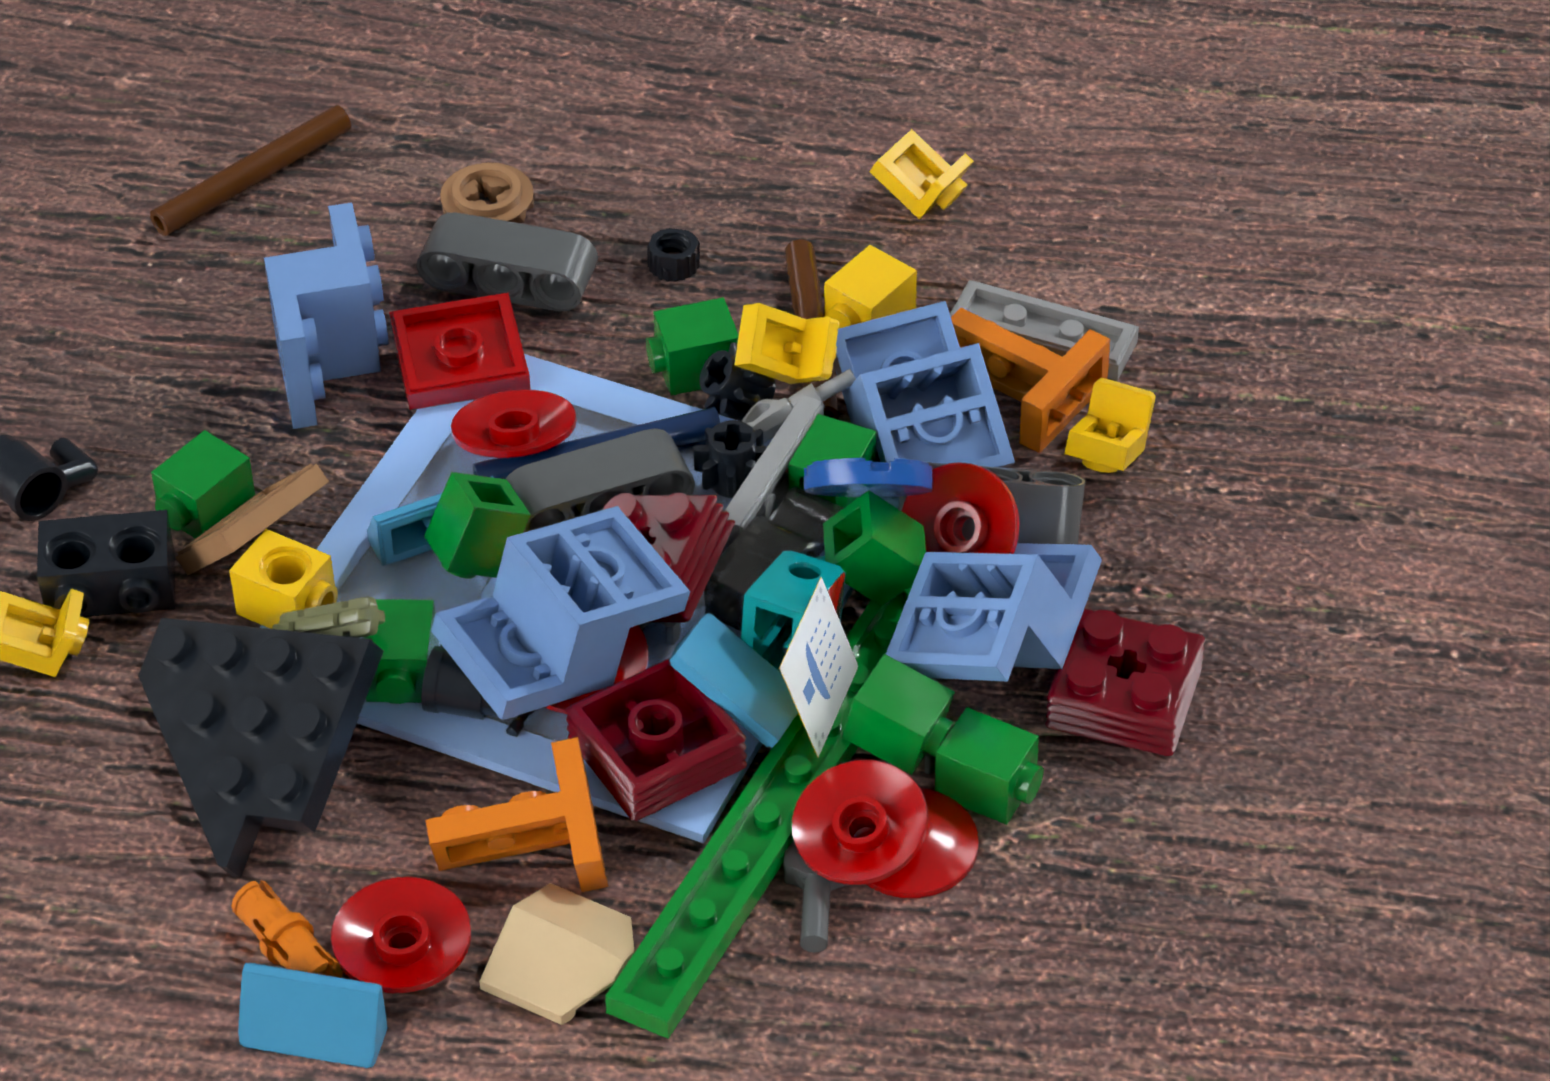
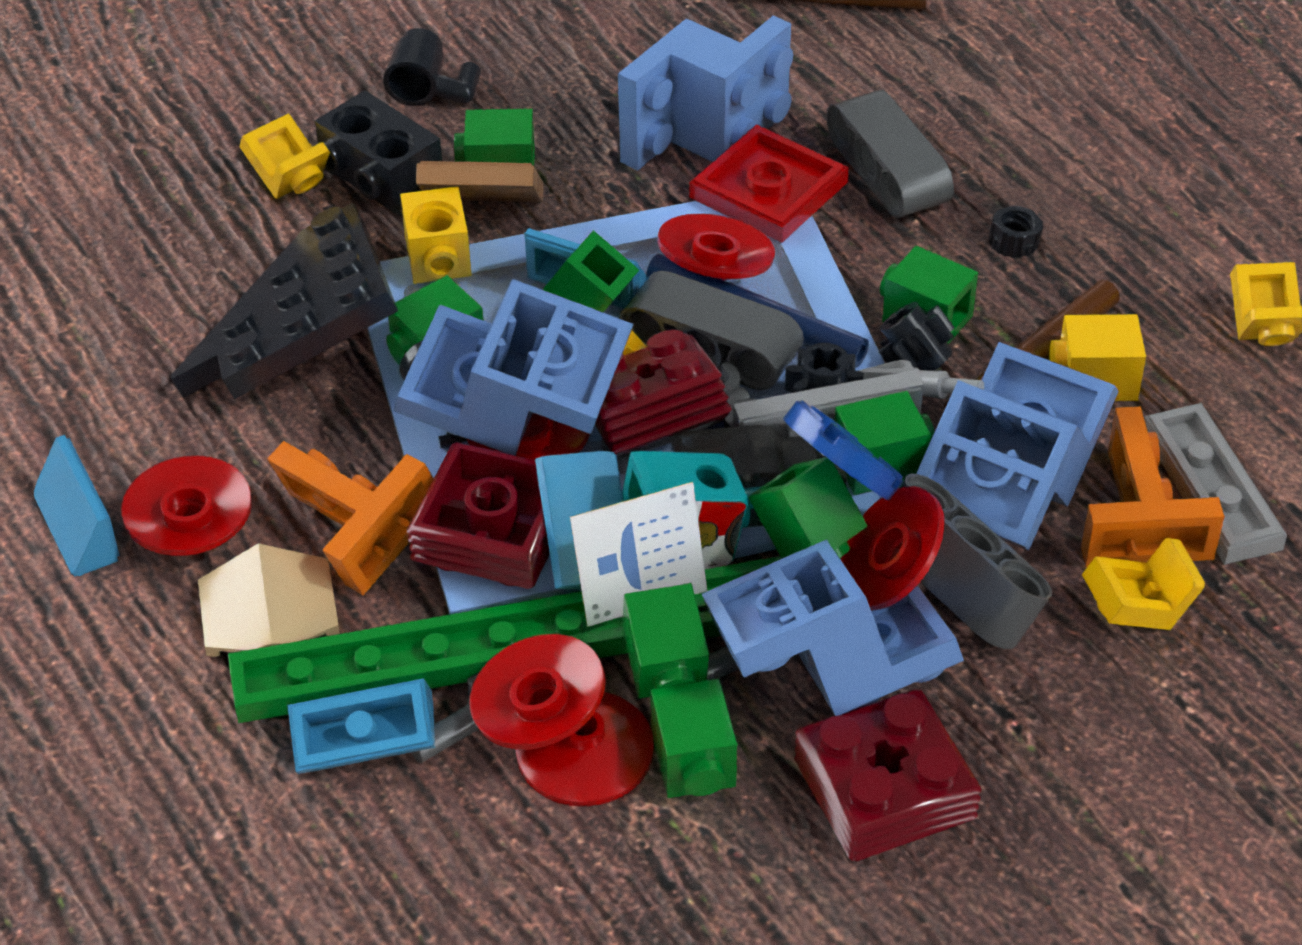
camera: 50 degrees right, 0 degrees up
(283, 935) = (135, 448): orange pin -> none
(345, 618) = (403, 271): olive axle -> none
(496, 181) = (927, 97): medium nougat gear -> none
(767, 958) = (362, 726): none -> dark azure slope
(786, 344) = (950, 325): yellow bracket -> none

